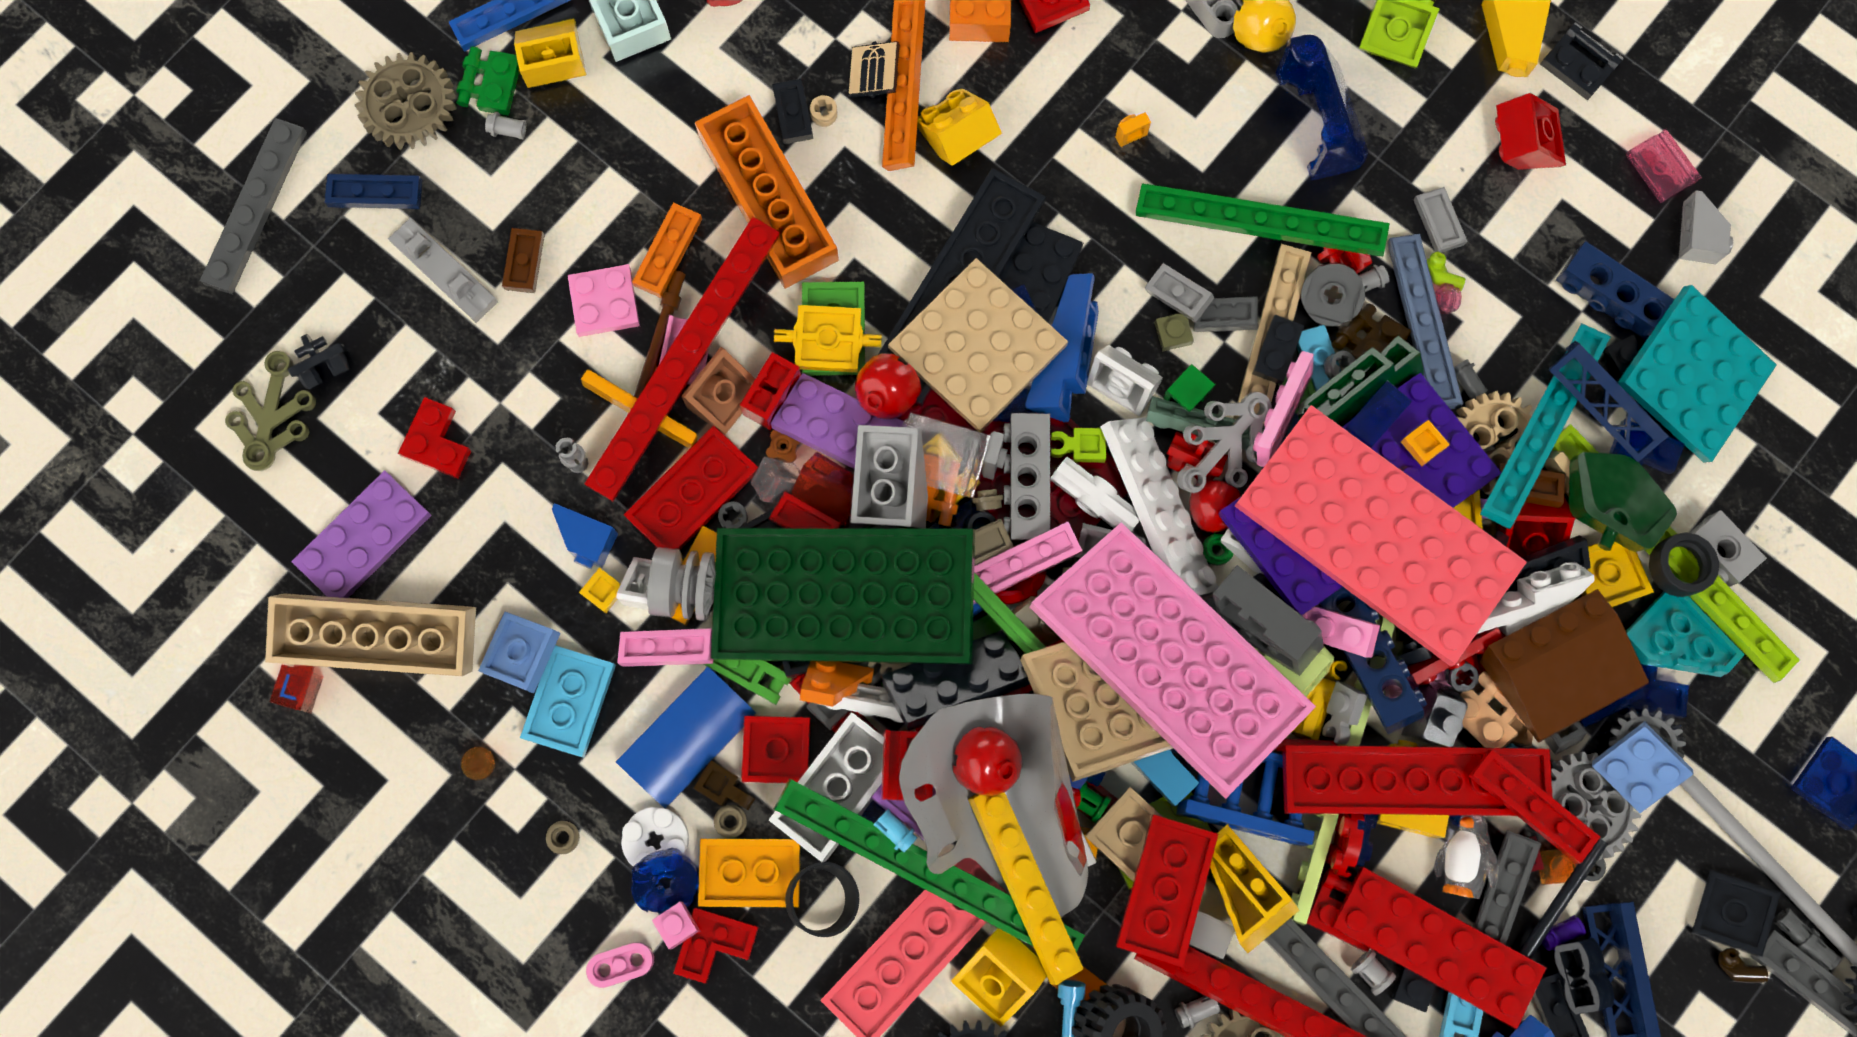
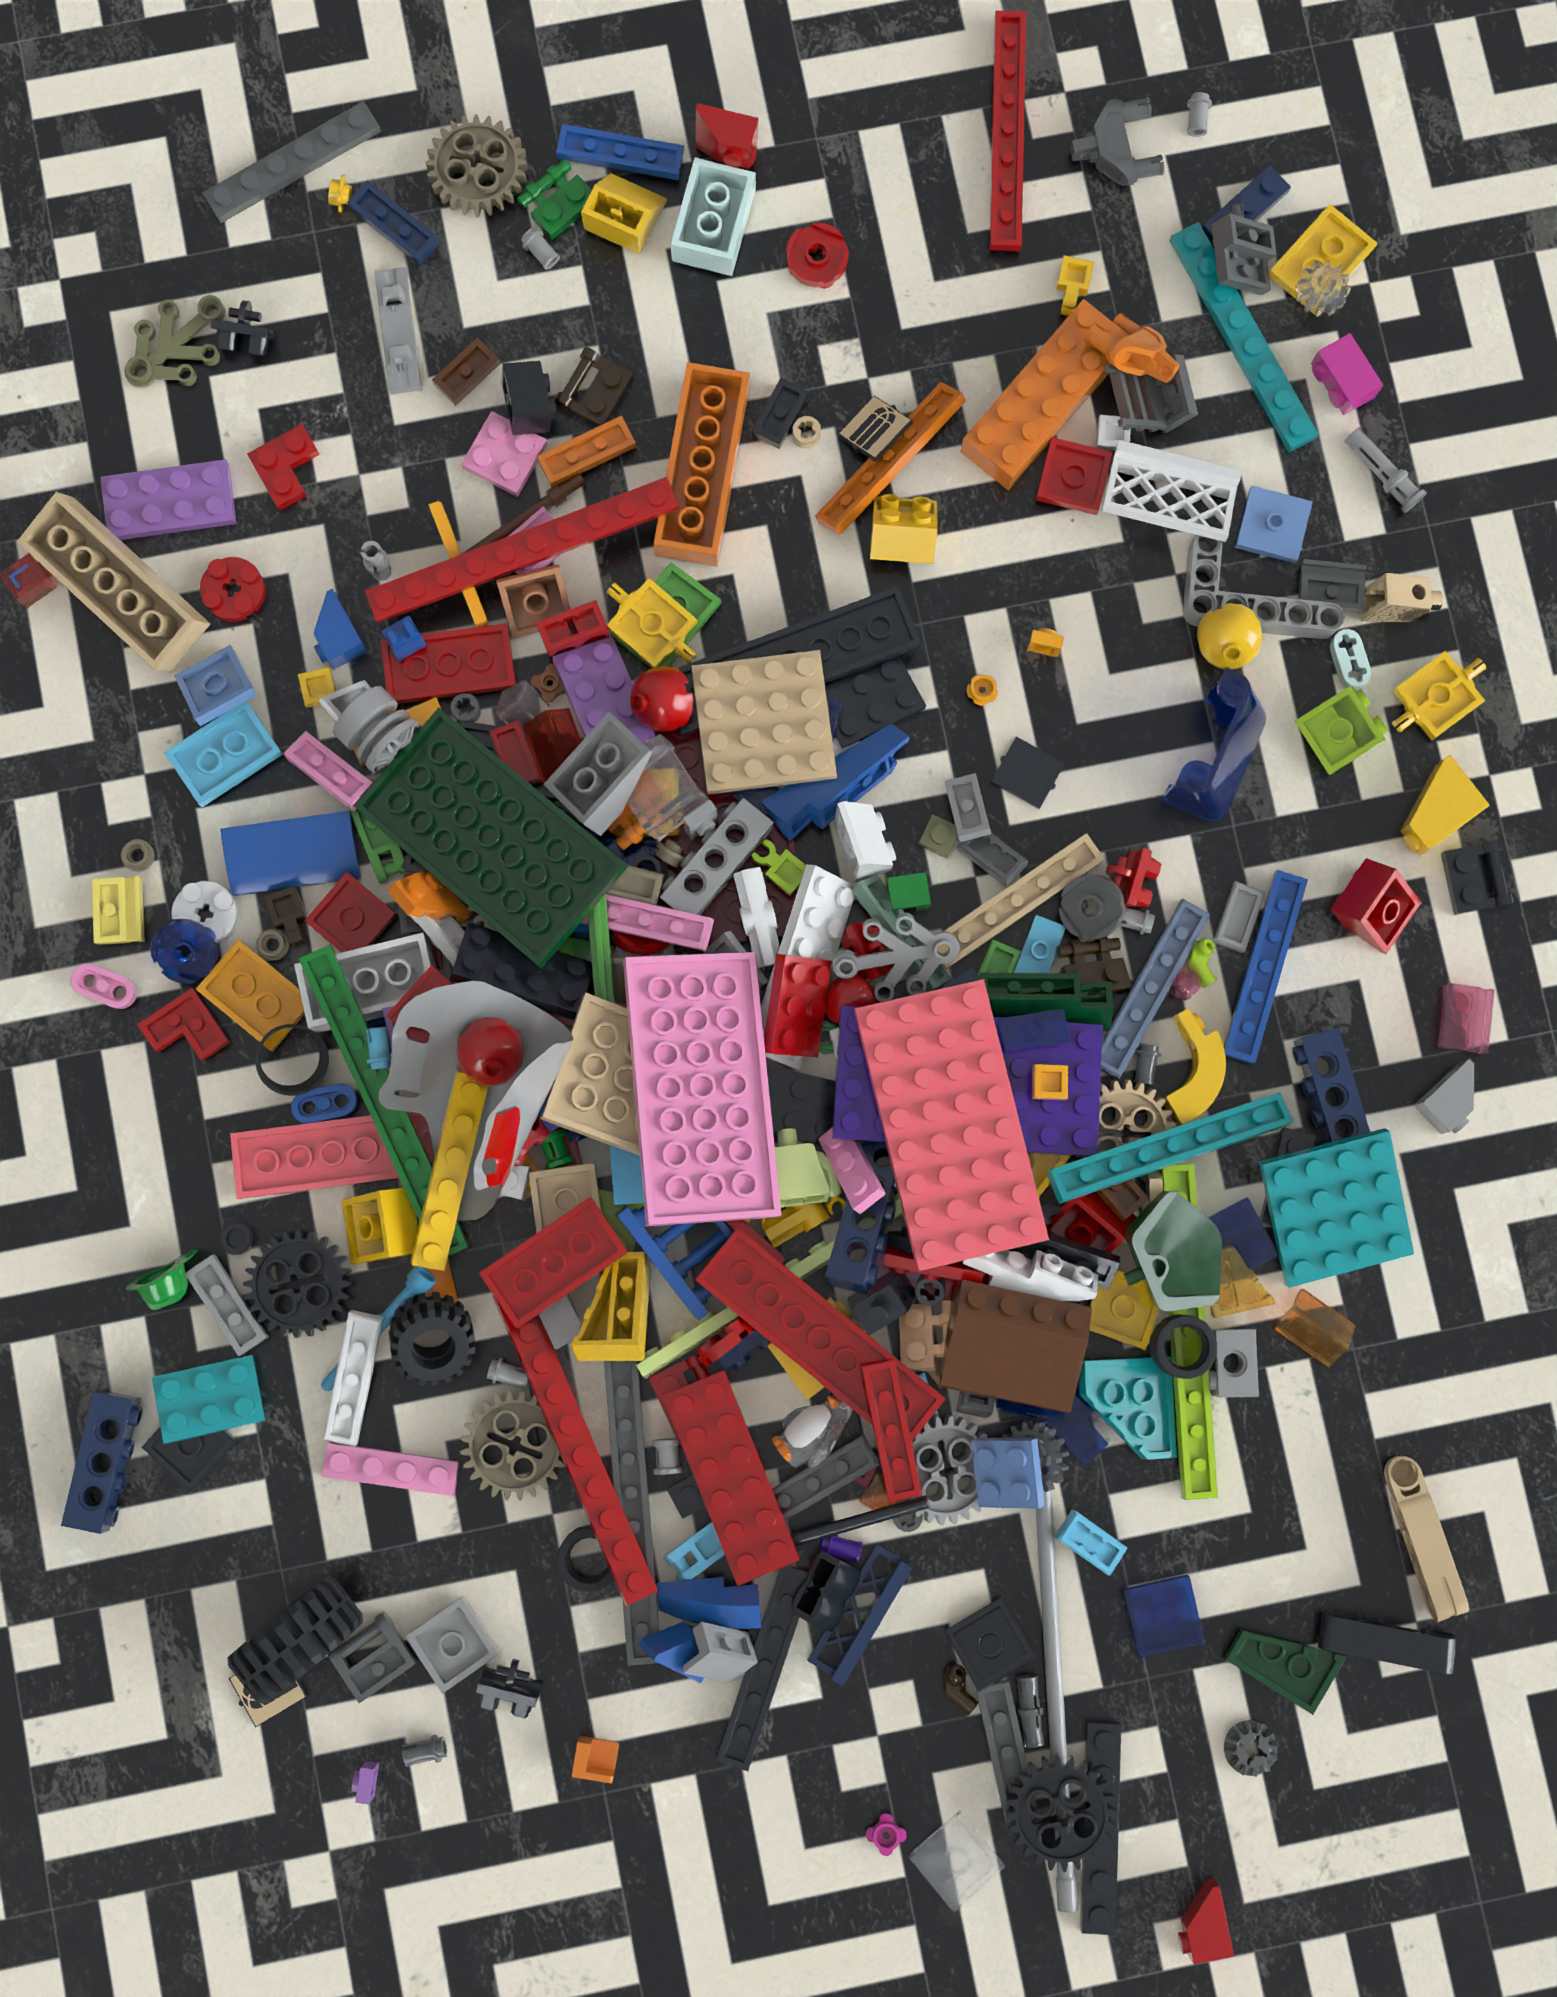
camera: 35 degrees right, 5 degrees up
(312, 200) = (339, 193): none -> yellow plate
(453, 560) = (243, 603): none -> red plate
(478, 763) = (119, 747): clear orange plate -> none
(582, 894) = (118, 910): none -> light yellow plate
(589, 242) = (527, 397): none -> black brick
(642, 498) = (404, 638): none -> blue tile
(643, 197) = (602, 395): none -> dark brown plate
(675, 925) = (167, 989): bright pink plate -> none
(876, 914) = (325, 1103): none -> blue plate
(1114, 191) = (990, 689): none -> light orange plate
(1184, 538) = (797, 1005): none -> red plate
(1197, 243) = (1027, 772): none -> black piece
(1263, 219) = (1084, 801): green plate -> none
(1267, 621) = (802, 1120): dark grey wedge -> none
(1278, 349) = (1007, 916): black plate -> none
(1287, 401) = (964, 968): bright pink plate -> none
(1331, 368) = (1037, 967): dark grey bush -> none
(1346, 708) = (812, 1239): light grey plate -> none
(1491, 241) = (1264, 966): none -> blue plate
(1517, 349) = (1206, 1072): none -> yellow arch
(1611, 388) = (1249, 1169): dark blue fence -> none
(1680, 488) = (1238, 1287): none -> clear yellow wing
(1739, 771) = (1090, 1542): none -> medium azure plate
(1758, 476) = (1316, 1328): none -> clear orange panel

